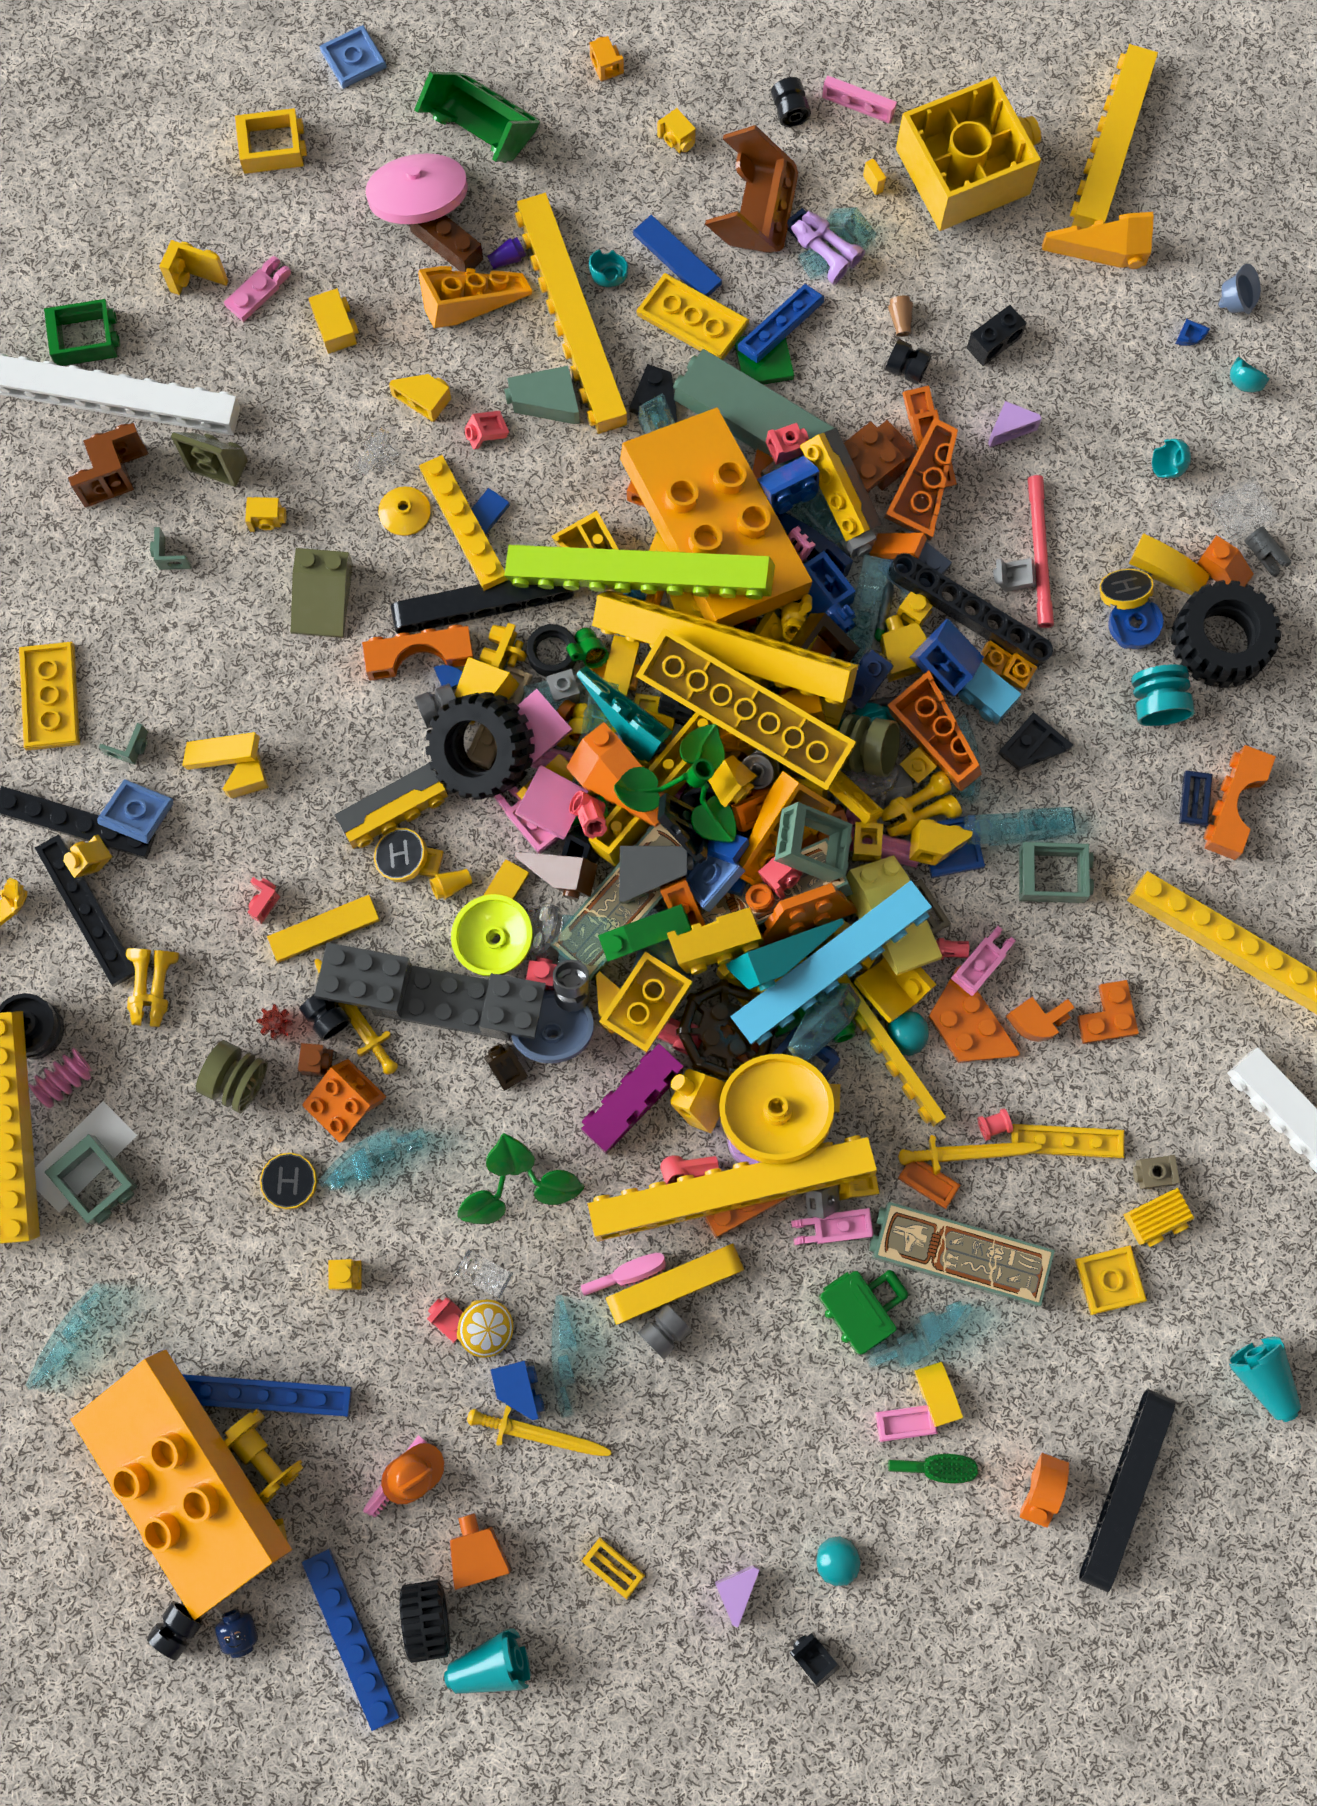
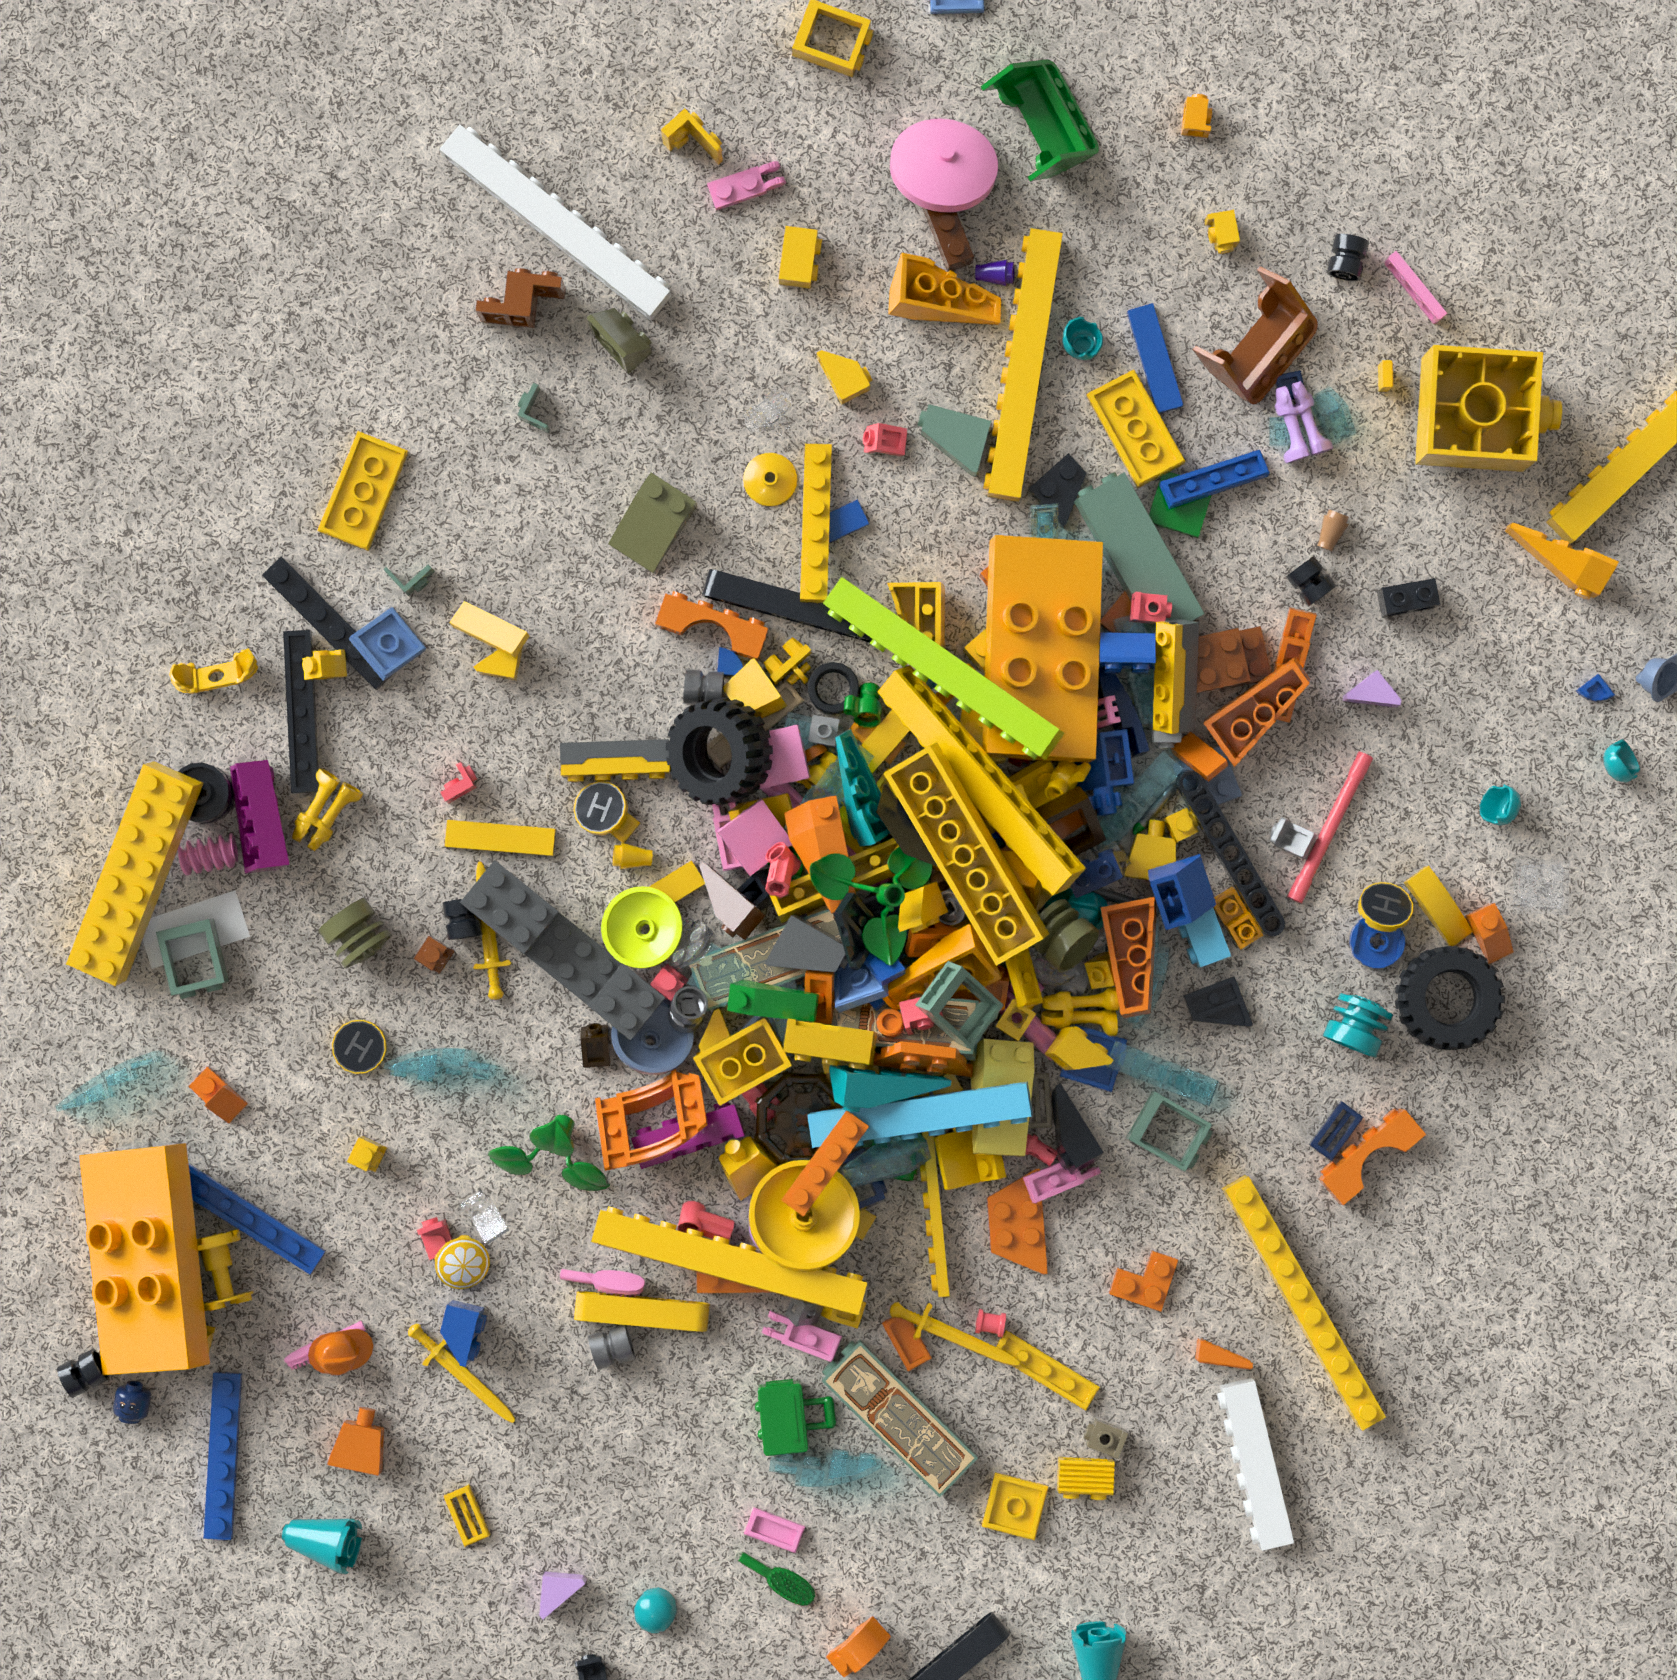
camera: 25 degrees right, 10 degrees up
(77, 313) = (534, 137): green window -> none
(91, 1021) = (258, 817): none -> magenta wedge
(177, 1295) = (218, 1095): none -> orange slope
(264, 513) = (640, 418): yellow brick -> none
(269, 1016) = (408, 904): clear red gear -> none
(342, 1099) = (441, 1001): orange bracket -> none
(424, 1621) = (289, 1477): black tyre -> none
(554, 1116) = (613, 1121): none -> orange wedge
(562, 1344) = (519, 1313): clear light blue slope -> none
(678, 722) = (901, 827): none -> black sticker
(770, 1048) = (825, 1163): none -> orange plate
(909, 1033) = (961, 1204): teal hair -> none
(938, 1394) = (814, 1521): yellow slope -> none
(975, 918) = (1074, 1139): none -> black slope
(1034, 1024) = (1073, 1253): orange brick -> none
(1206, 1045) = (1213, 1354): none -> orange slope
(1263, 547) = (1538, 939): dark grey hinge -> none

